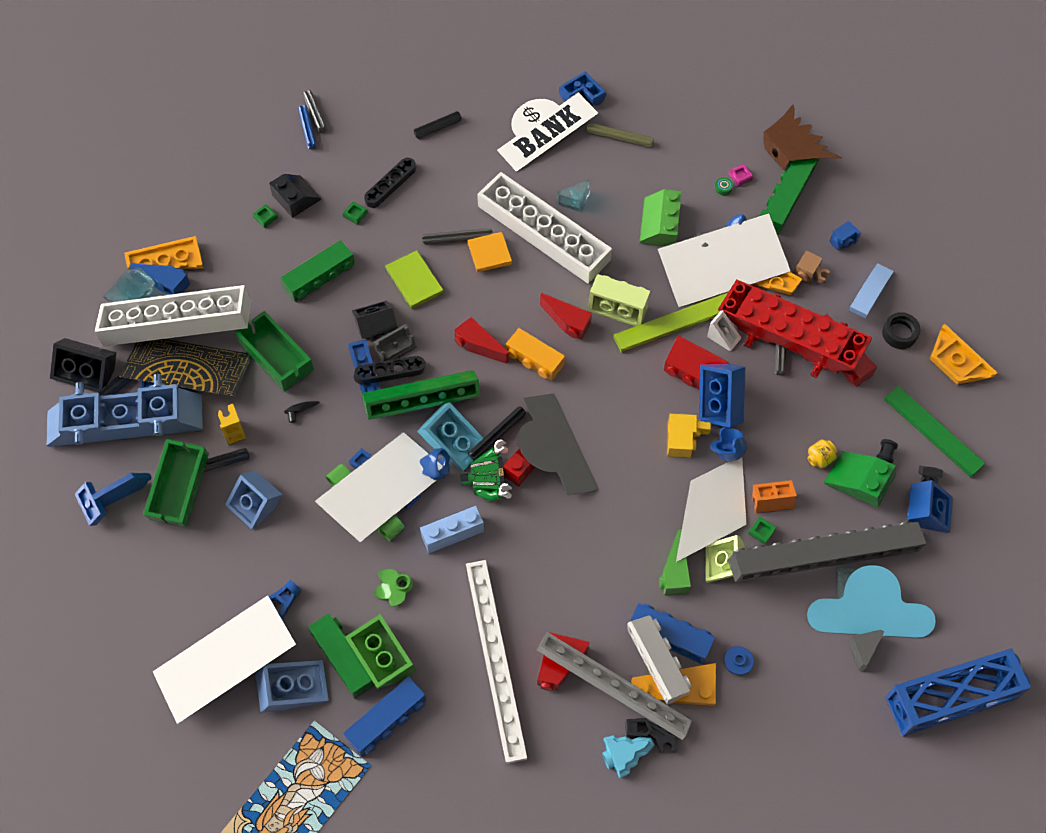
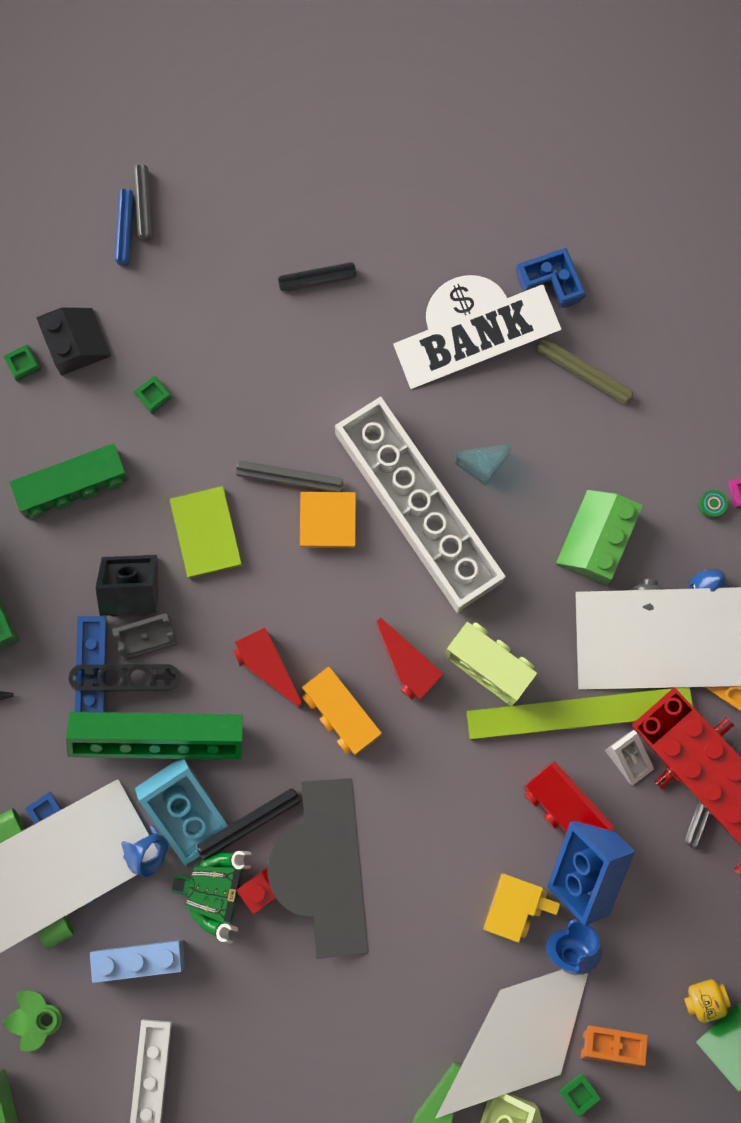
camera: 15 degrees right, 15 degrees up
(391, 183) = (221, 361): black beam -> none

